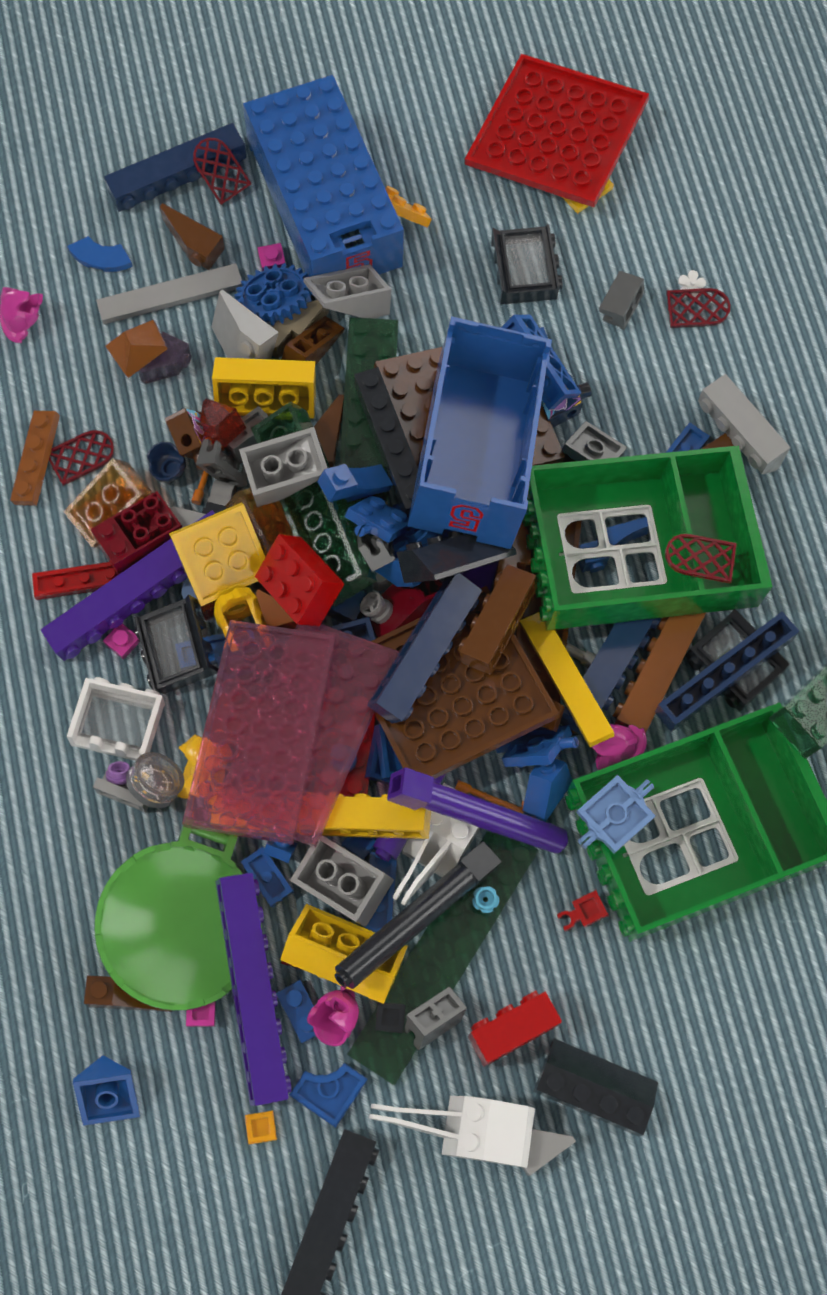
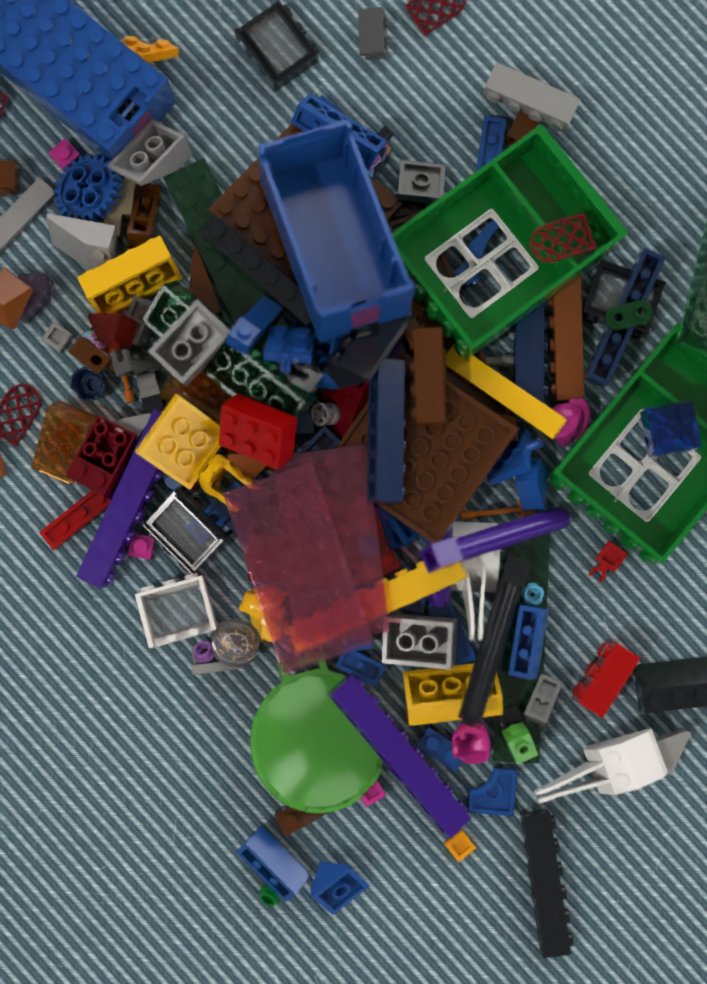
camera: 25 degrees left, 15 degrees up
(31, 1063) = (268, 896): none -> green plate
(54, 1029) = (273, 863): none -> blue brick
(162, 407) = (57, 337): none -> light grey tile
(385, 1043) = (519, 742): none -> bright green brick
(453, 942) = (528, 641): none -> blue brick
(615, 814) = (601, 483): medium blue plate -> none
(716, 798) = (670, 429): none -> clear blue brick
(731, 669) = (629, 315): none -> dark green plate

